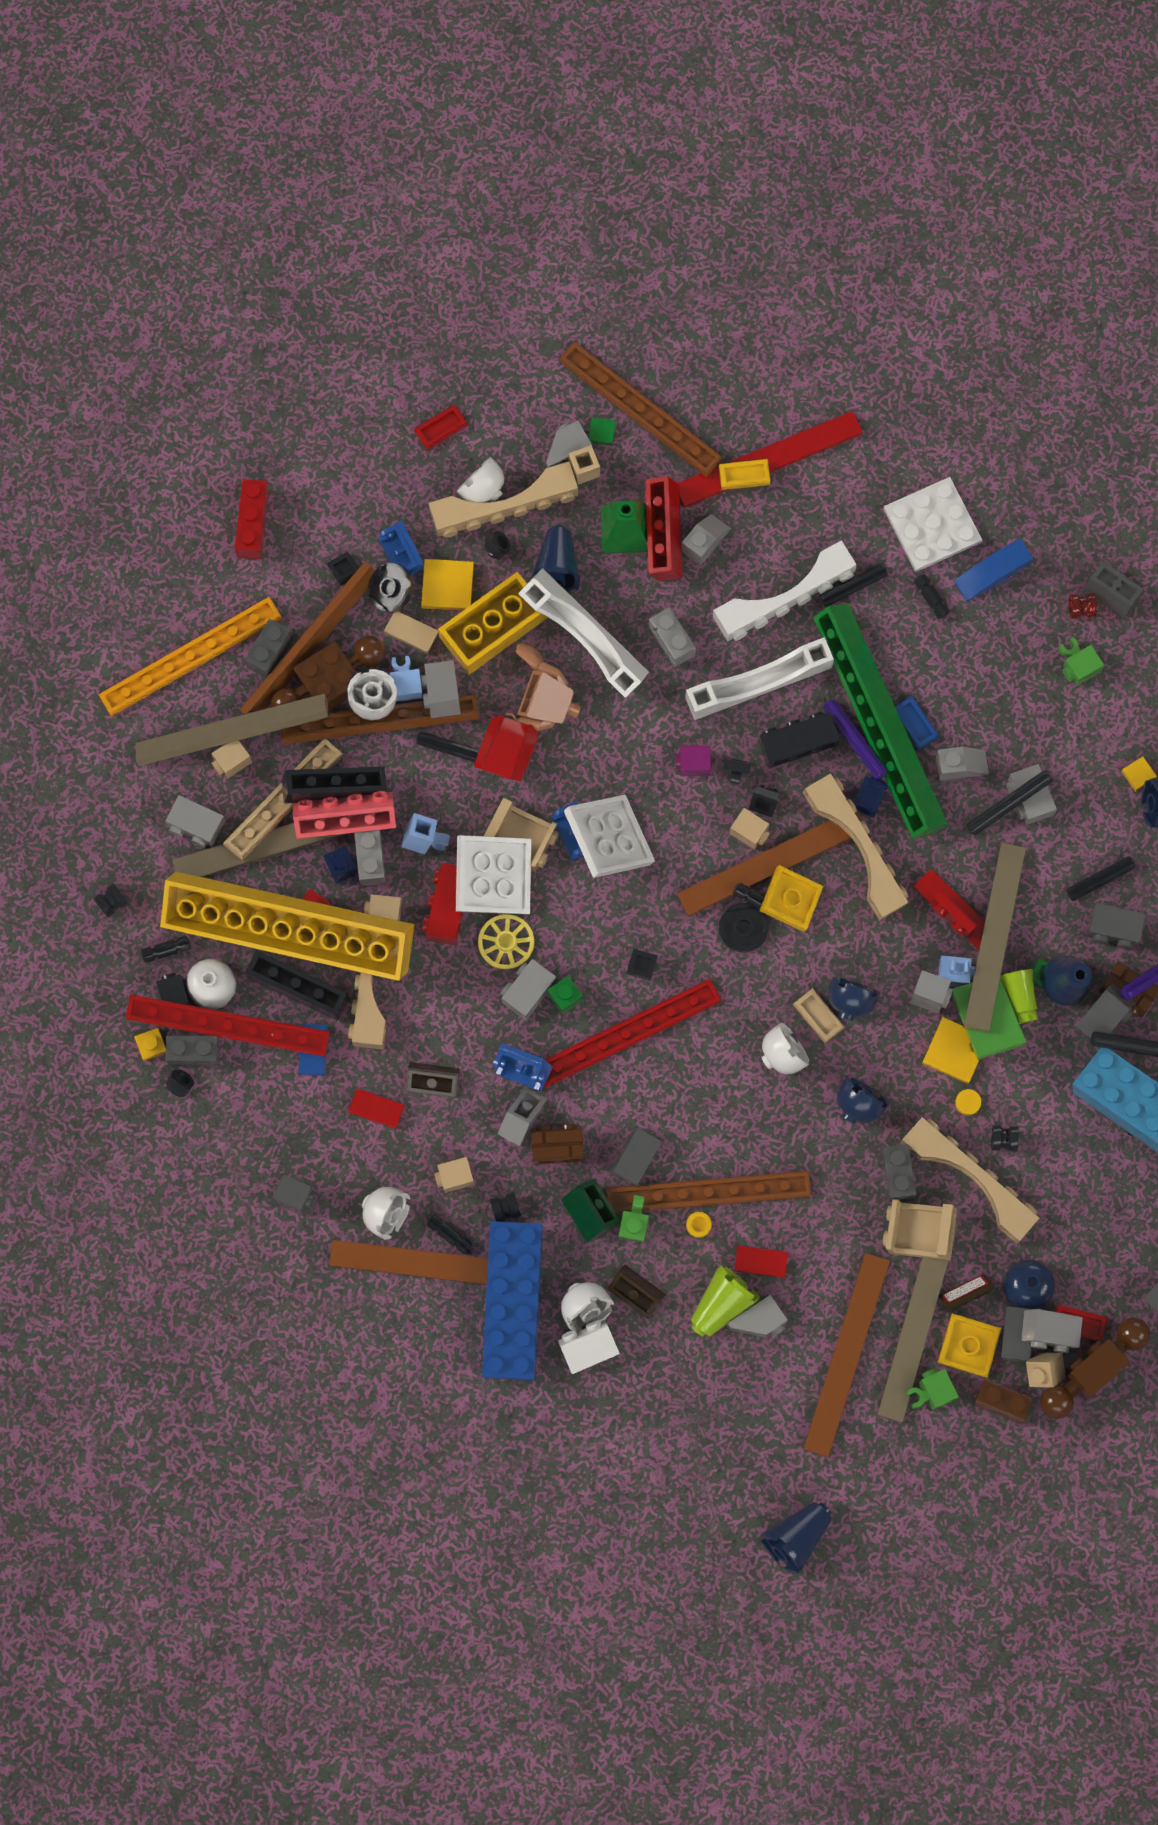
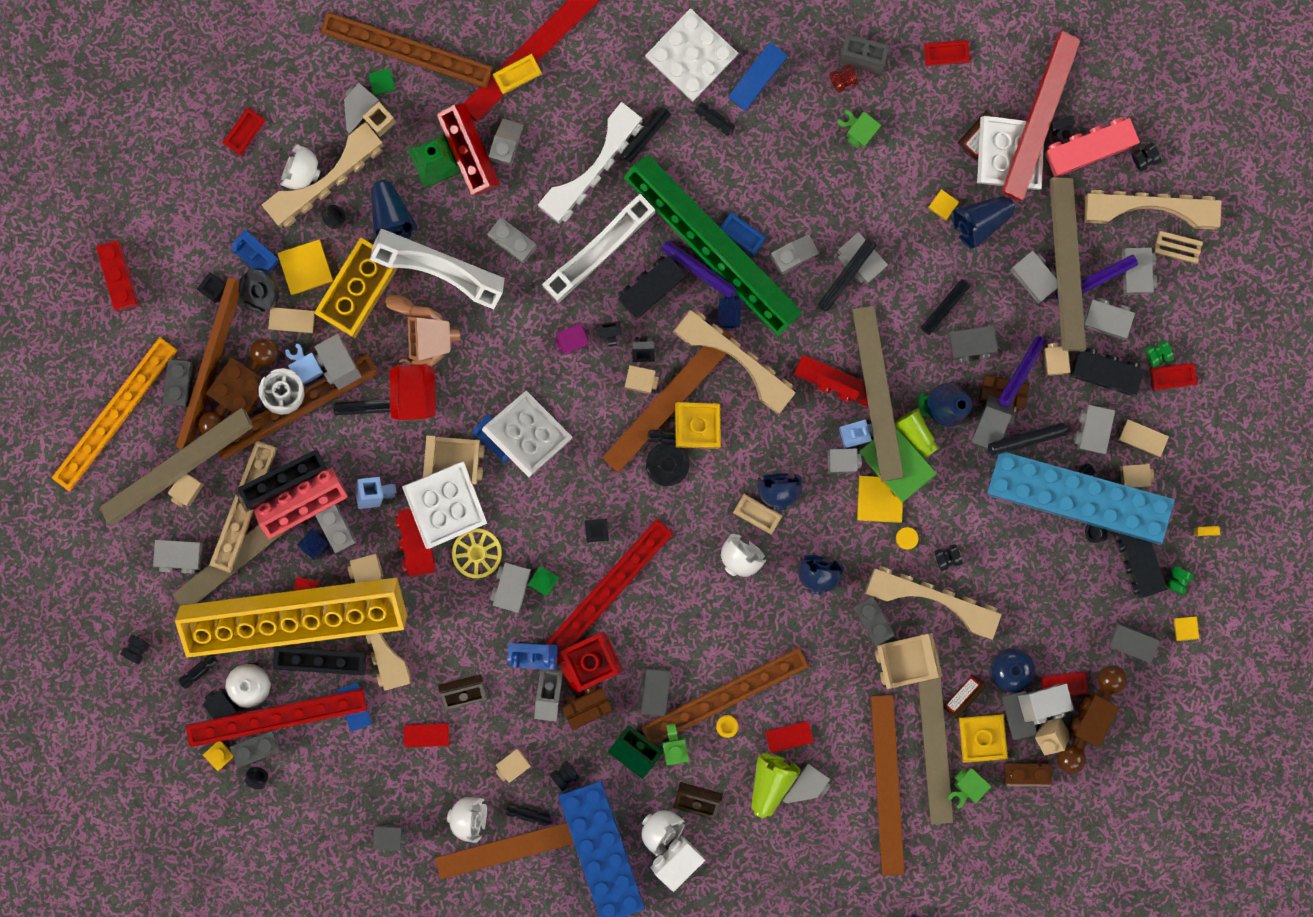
camera: 20 degrees left, 10 degrees up
(579, 1097) = (589, 662): none -> red slope

